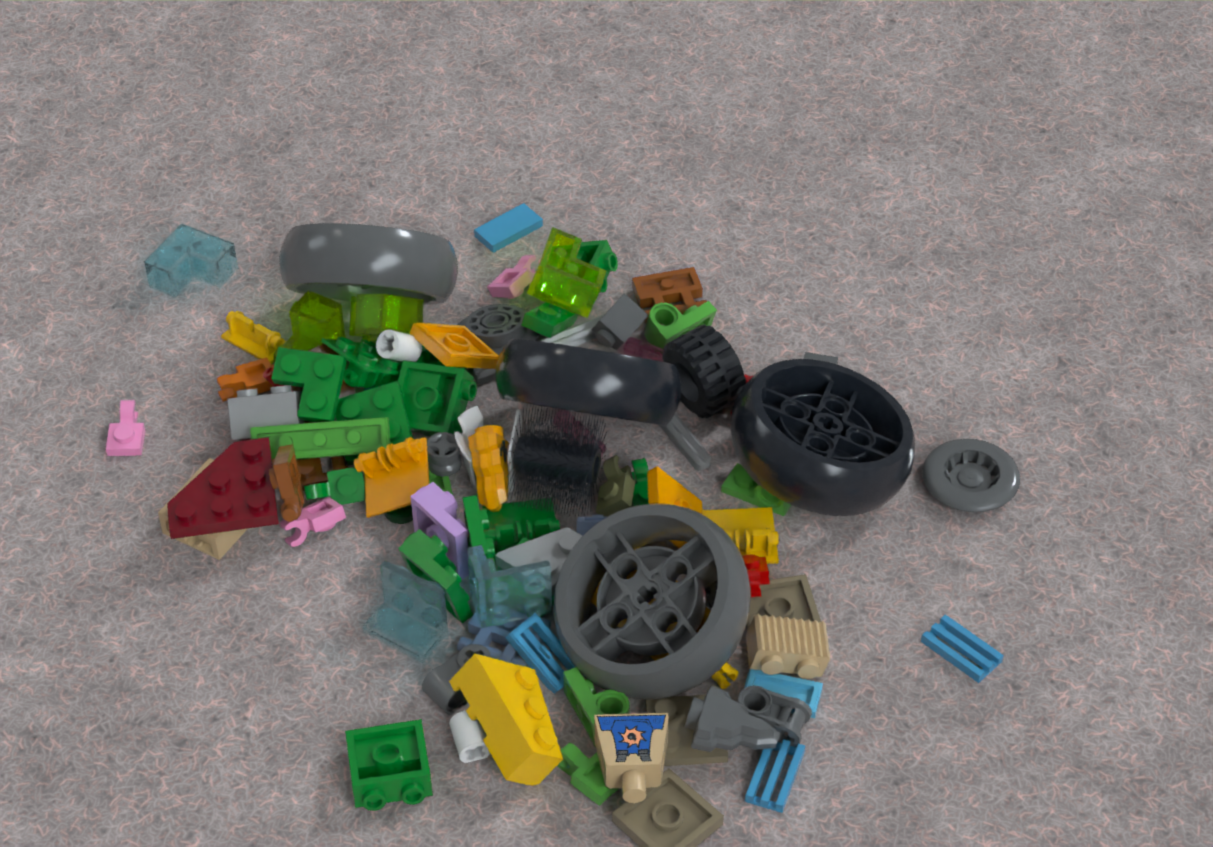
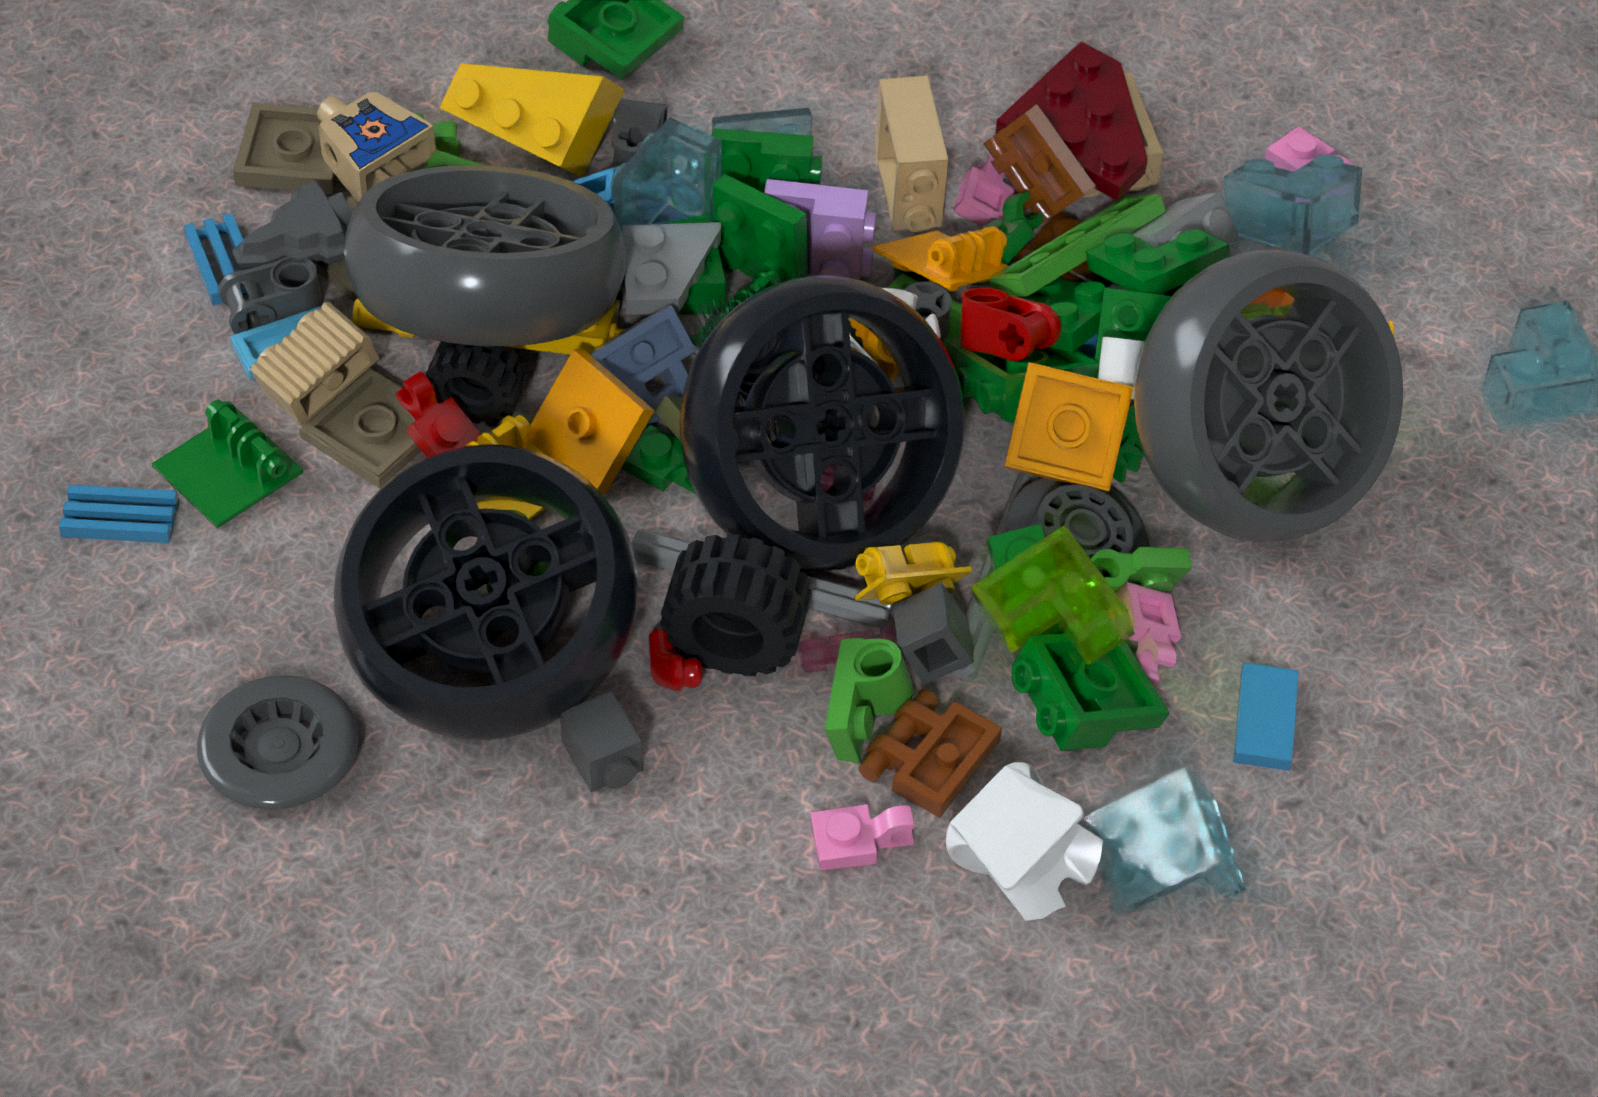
camera: 135 degrees right, 5 degrees up
(186, 388) = (1297, 207): none -> clear light blue brick
(337, 542) = (910, 153): none -> tan window
(419, 404) = (1006, 324): none -> red piece
(487, 291) = (1146, 566): none -> bright green plate
(612, 340) = (894, 580): none -> yellow hinge
(619, 205) = (1164, 842): none -> clear light blue bracket
(685, 226) = (1024, 840): none -> white piece
(738, 290) = (851, 838): none -> bright pink plate
(879, 635) = (227, 465): none -> green hinge

